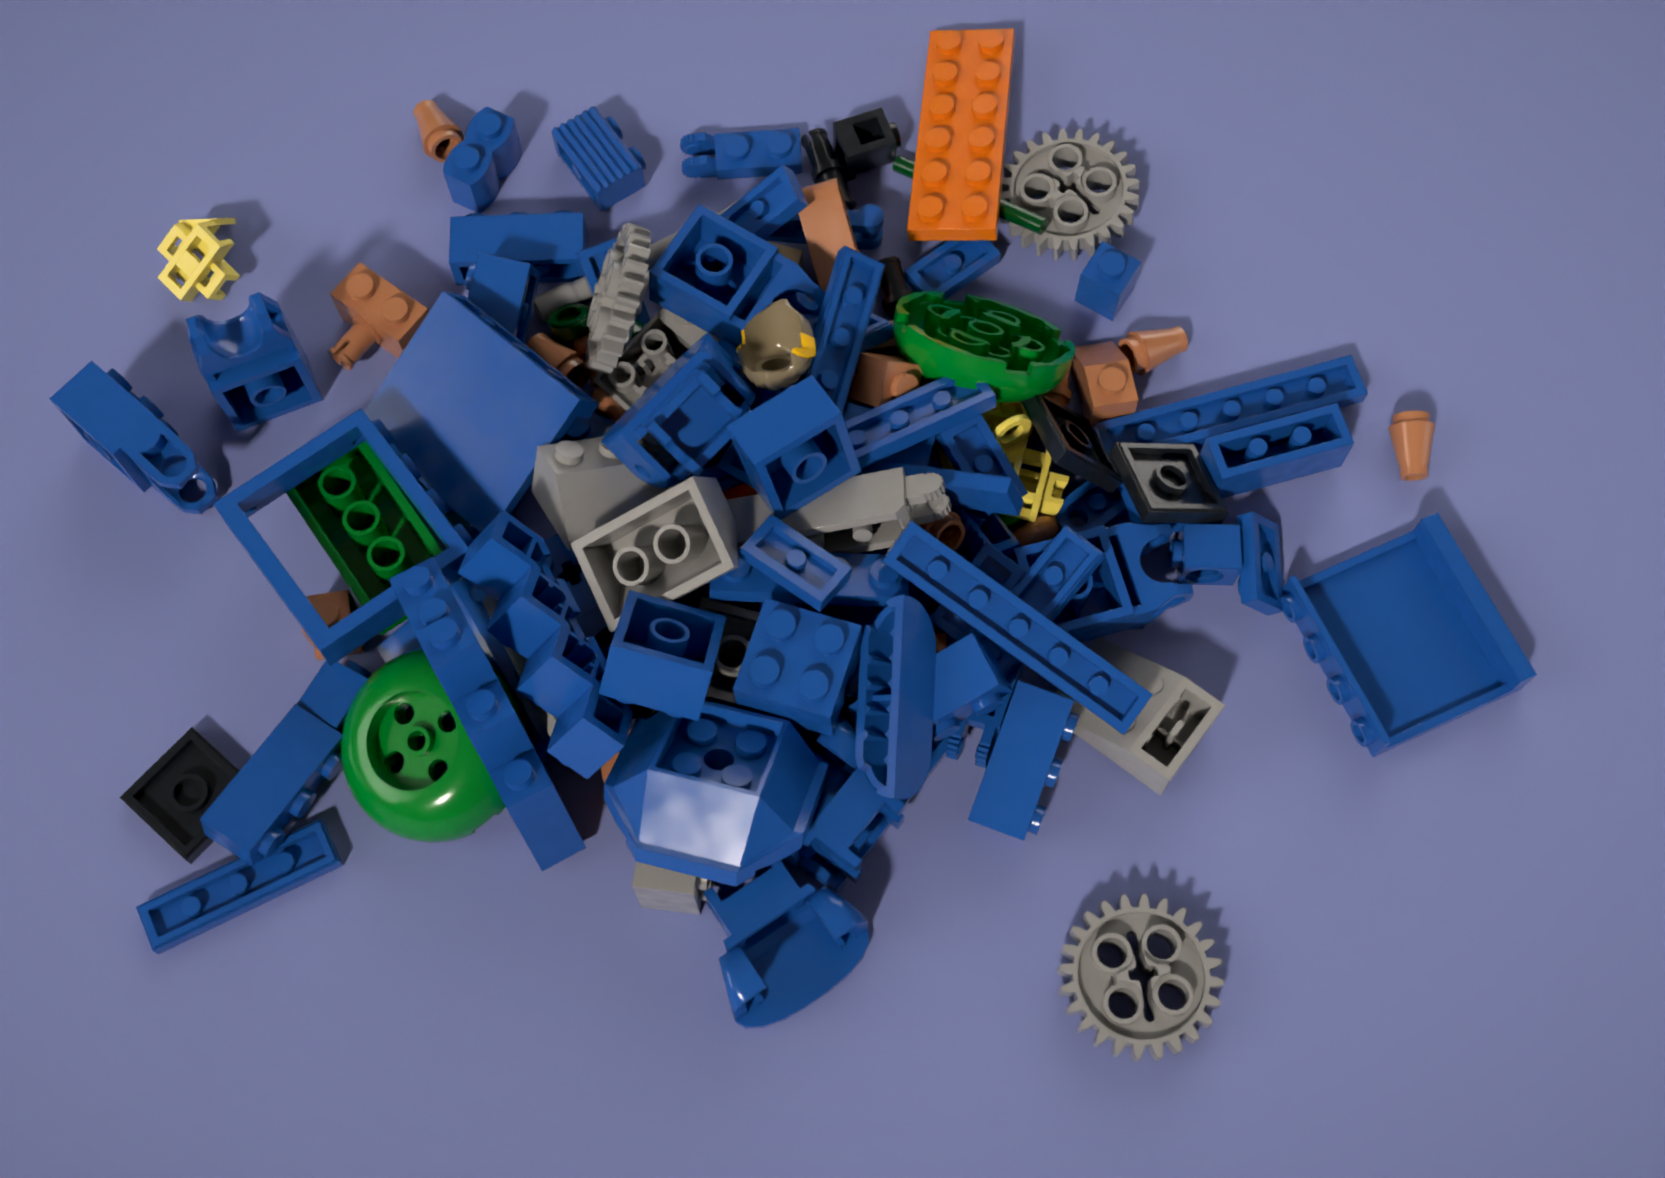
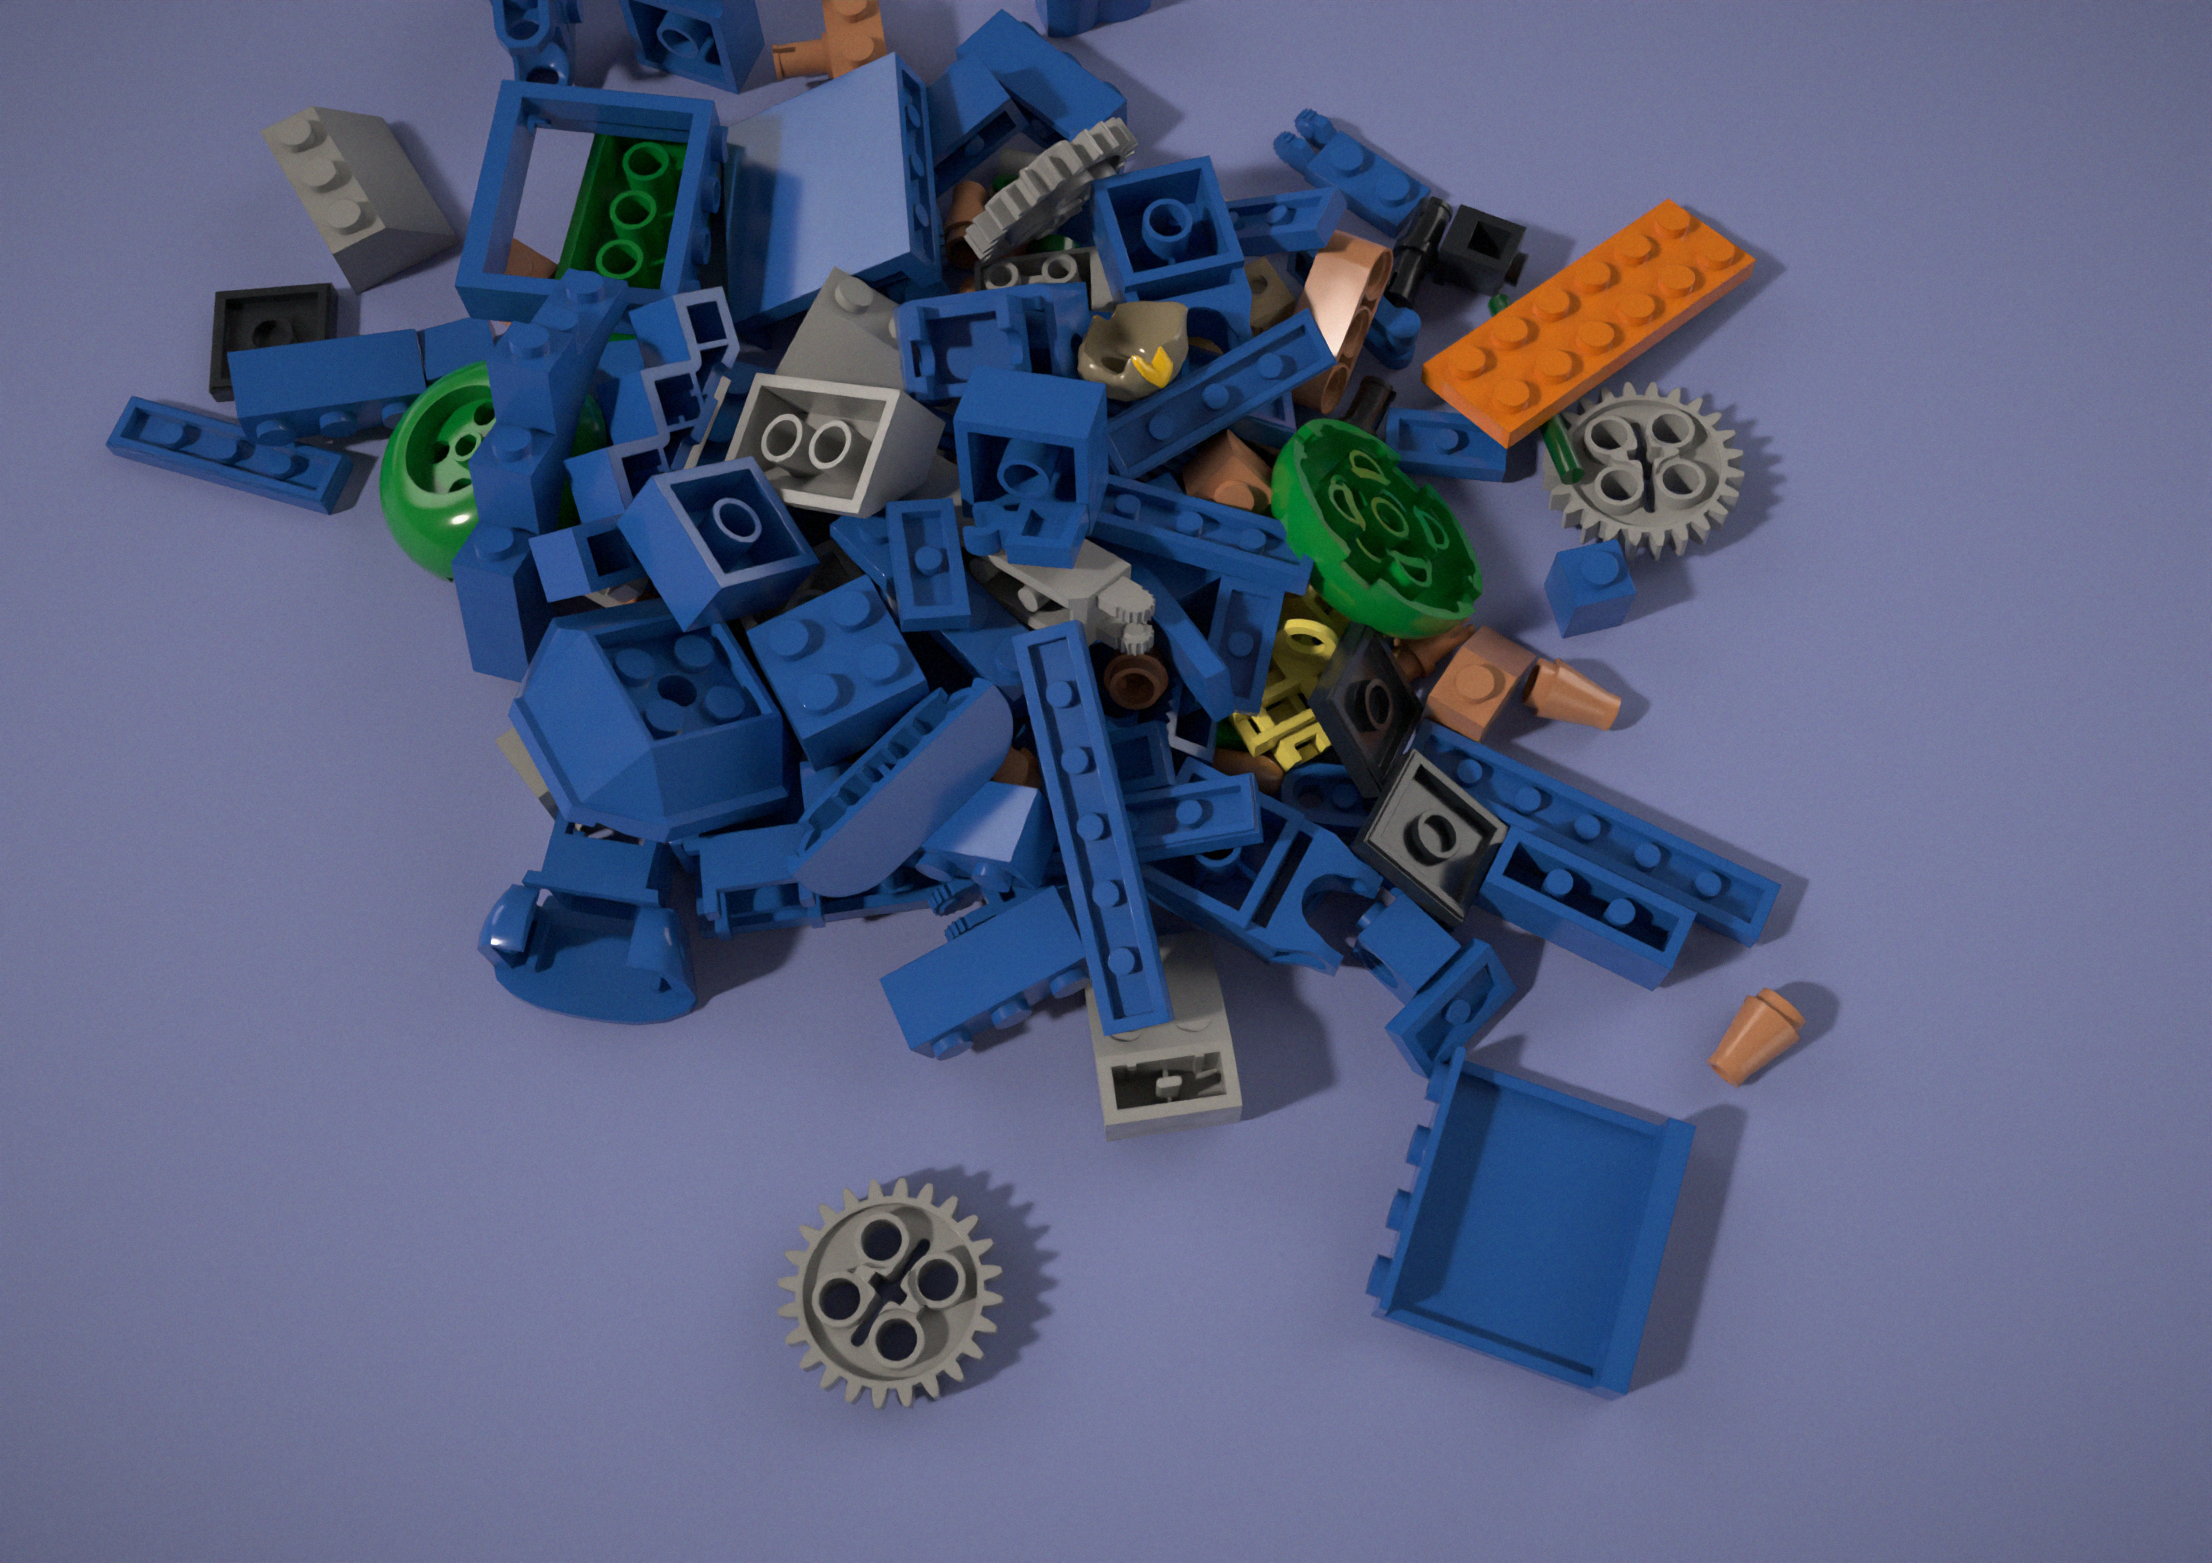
camera: 45 degrees right, 0 degrees up
(149, 659) = (359, 192): none -> light grey slope
(599, 158) = (1203, 66): blue brick -> none
(840, 491) = (1033, 535): none -> blue plate

